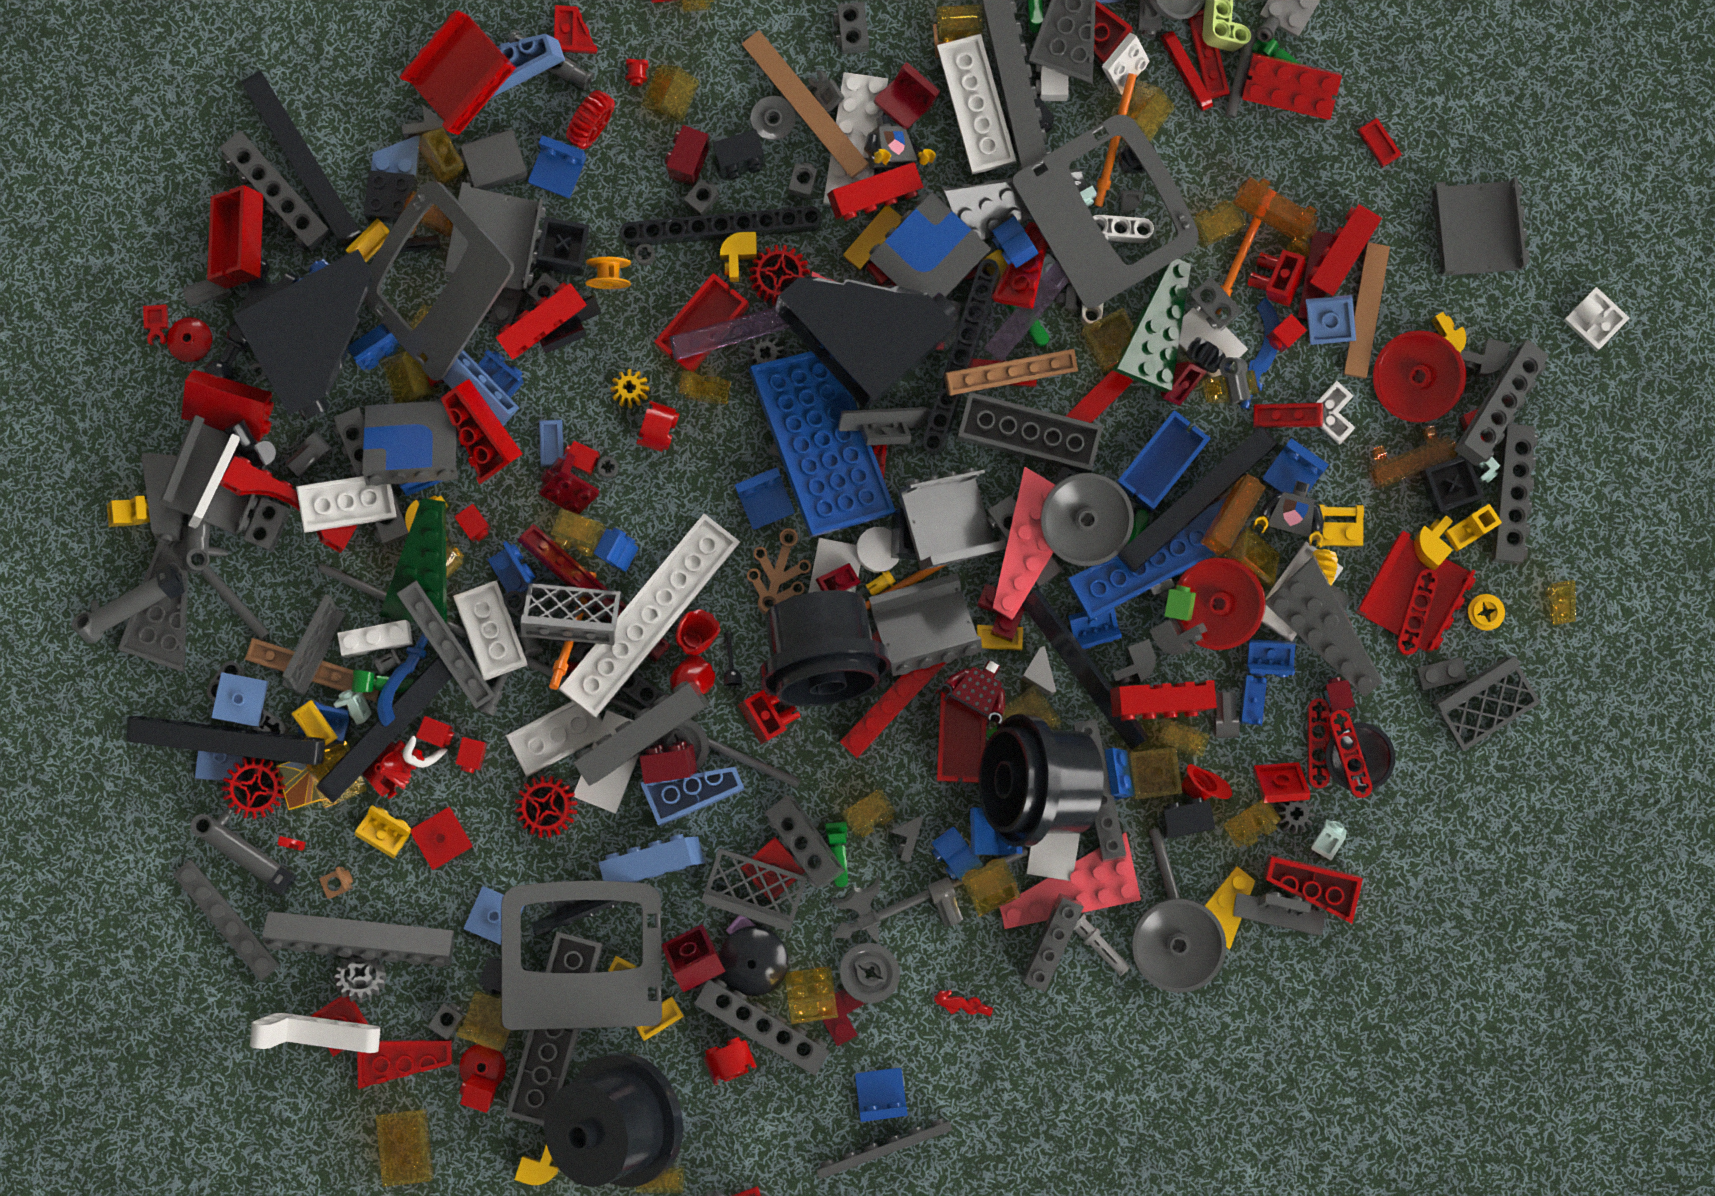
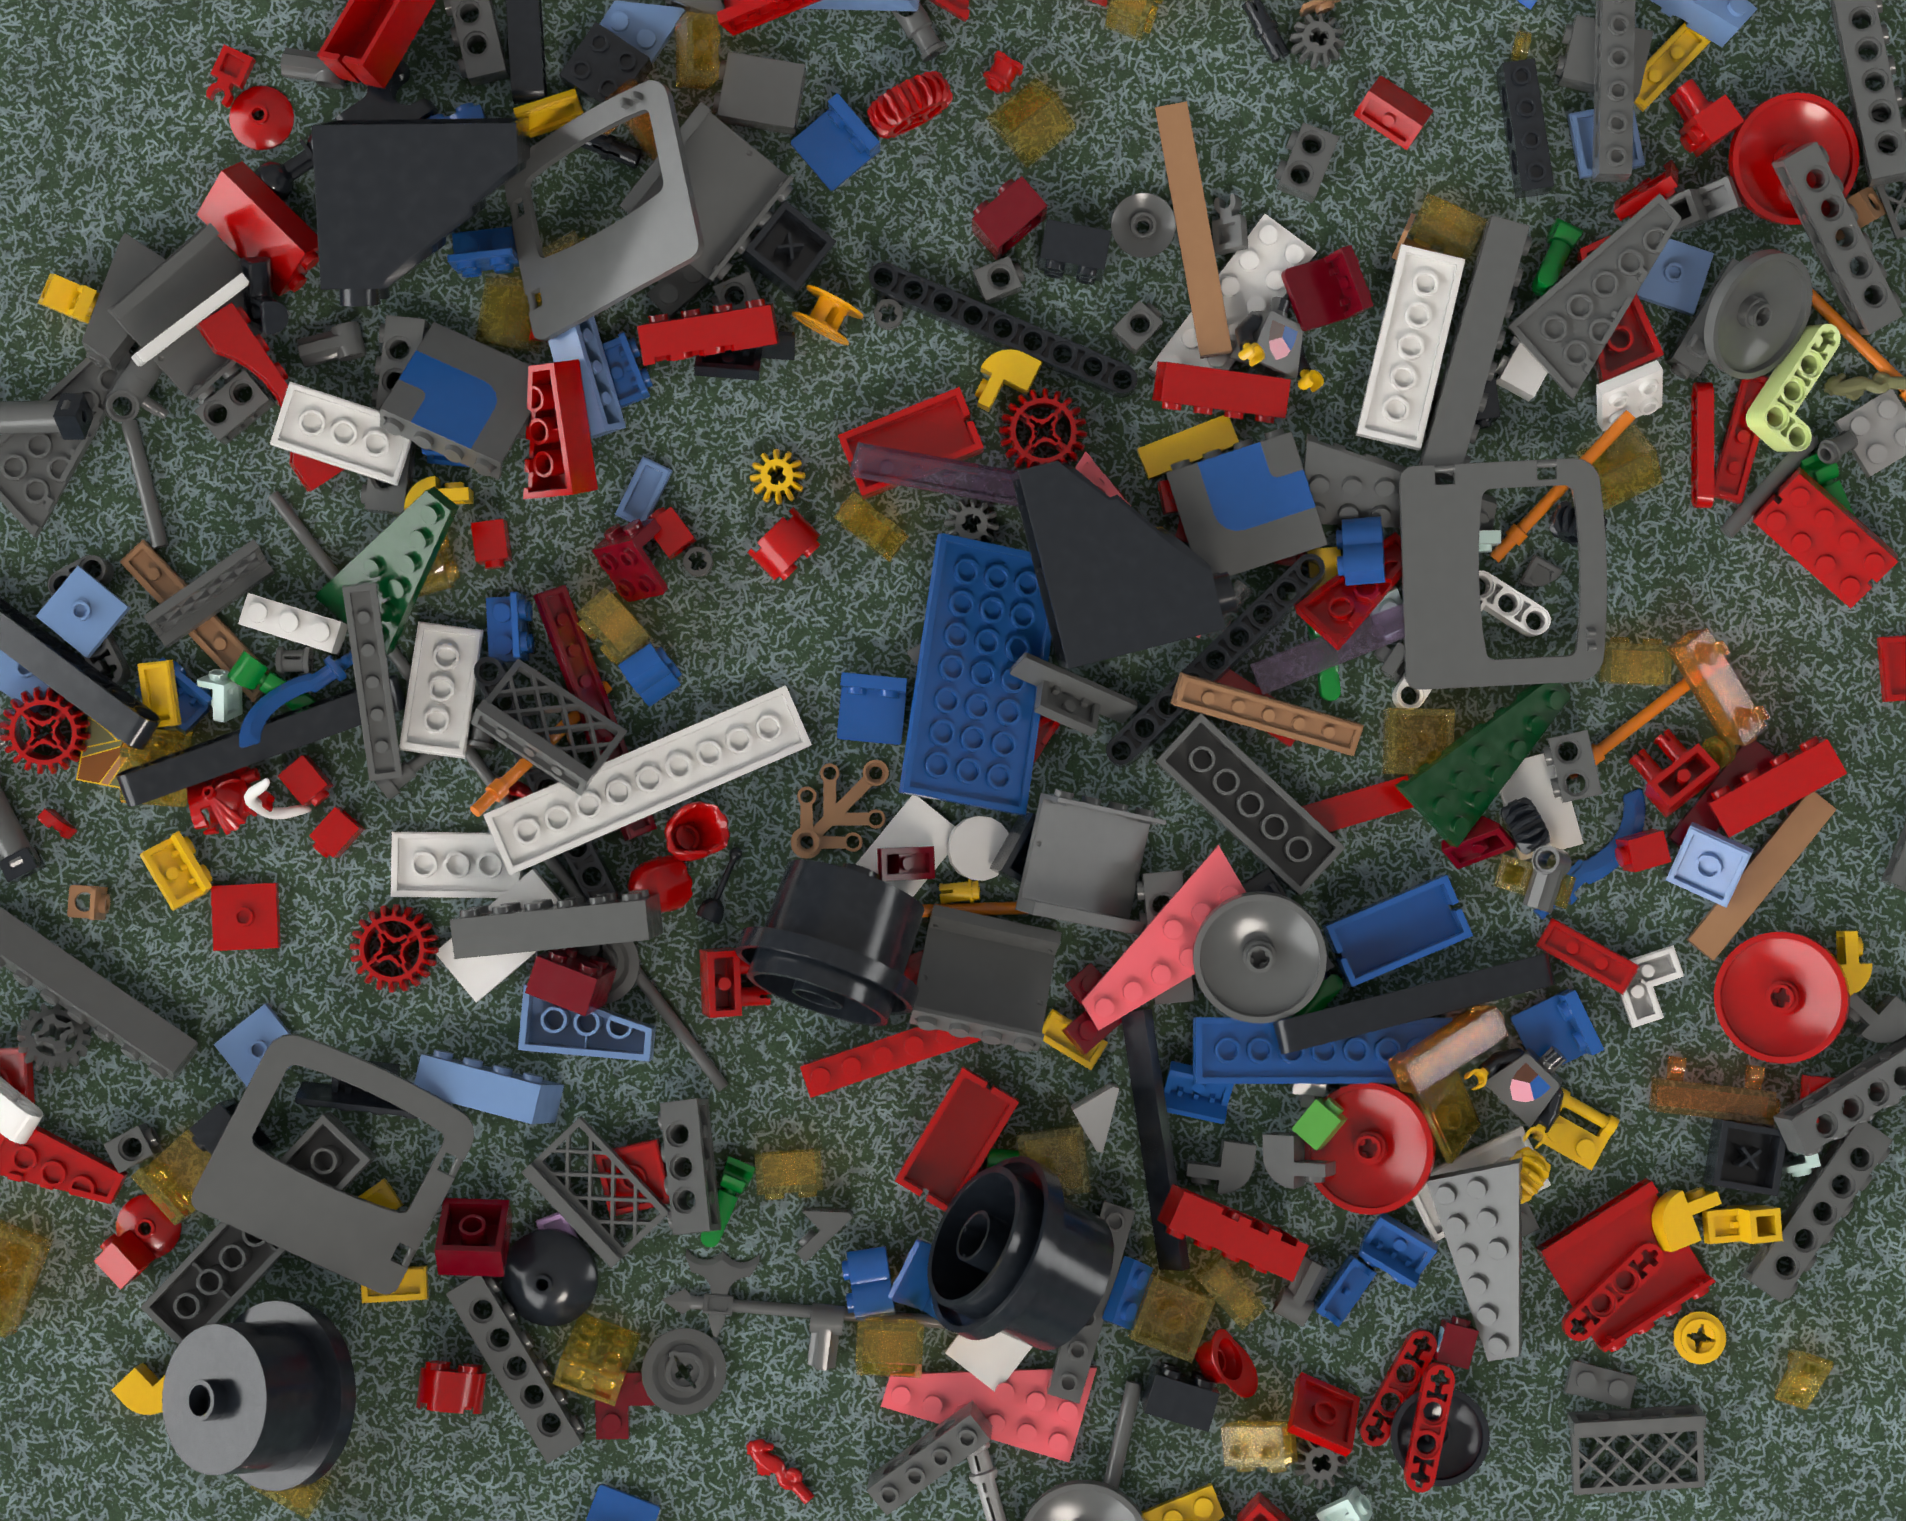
camera: 30 degrees right, 5 degrees up
(977, 691) = (1004, 1101): dark red torso -> none

